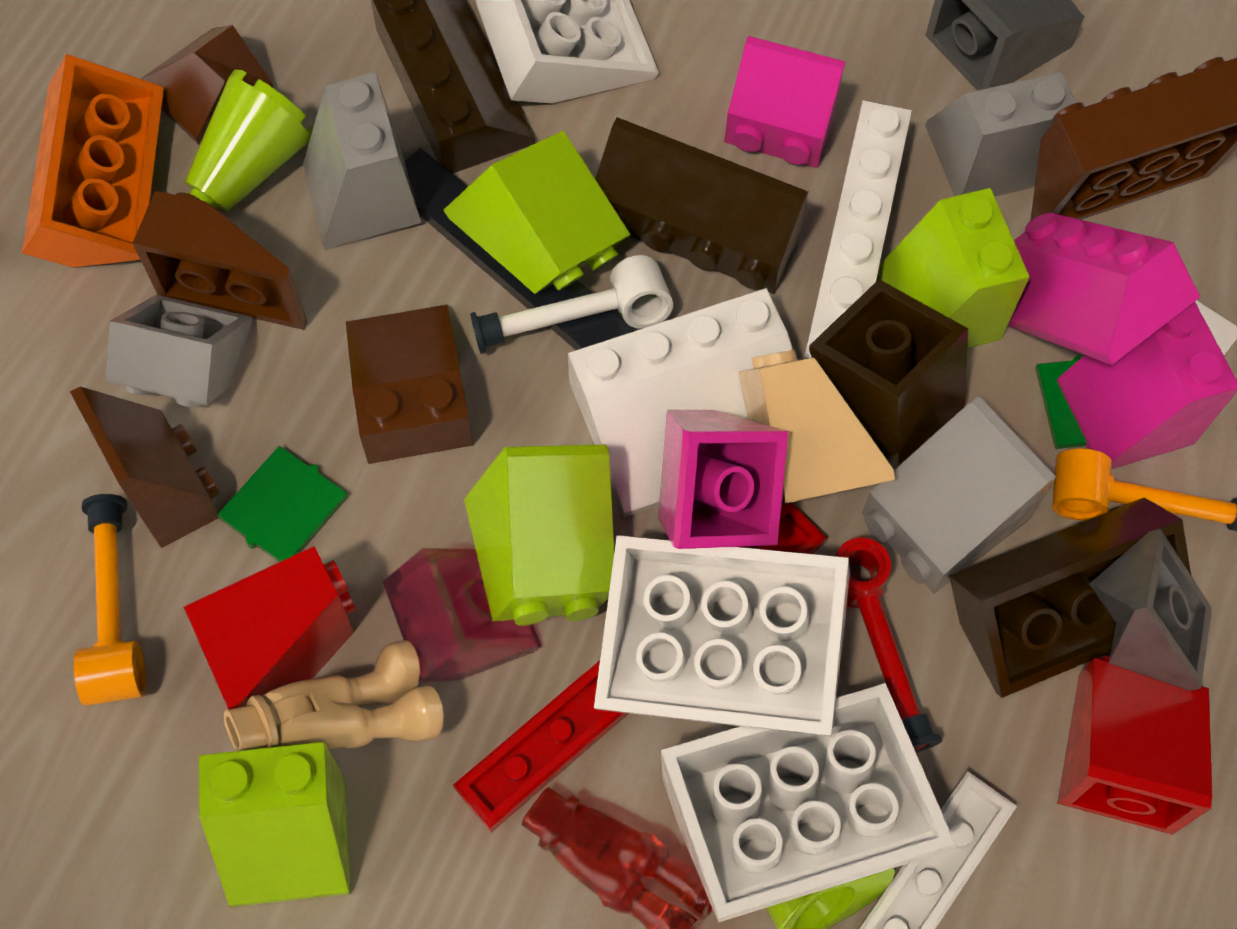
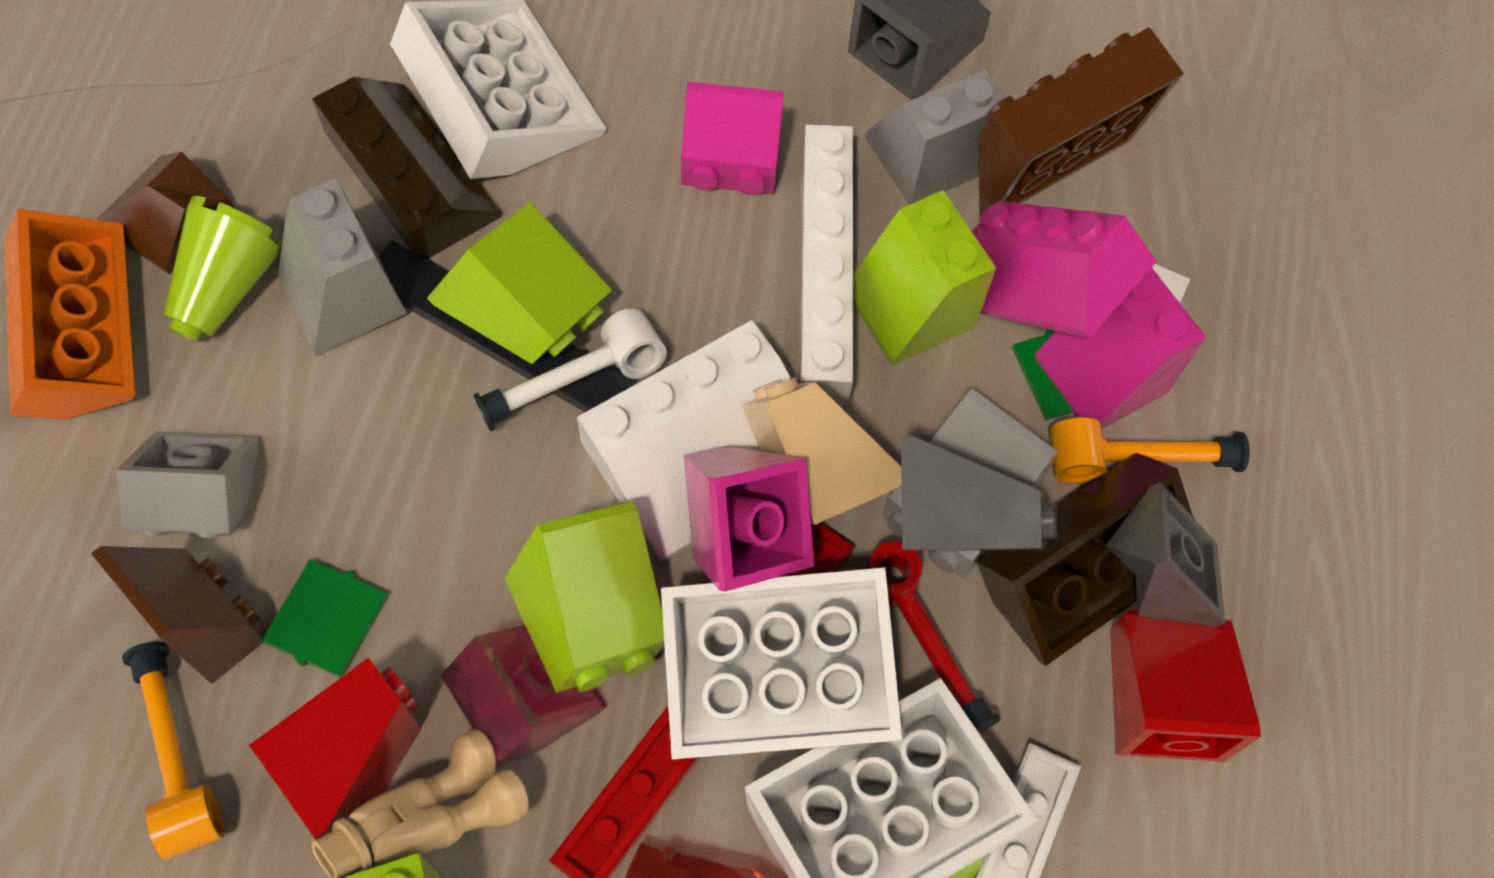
camera: 15 degrees left, 0 degrees up
(211, 262) = (203, 390): reddish brown slope -> none
(407, 384) = (425, 474): reddish brown slope -> none
(701, 206) = (673, 251): dark brown slope -> none
(896, 367) = (888, 372): dark brown slope -> none
(947, 513) = (967, 506): none -> dark grey slope

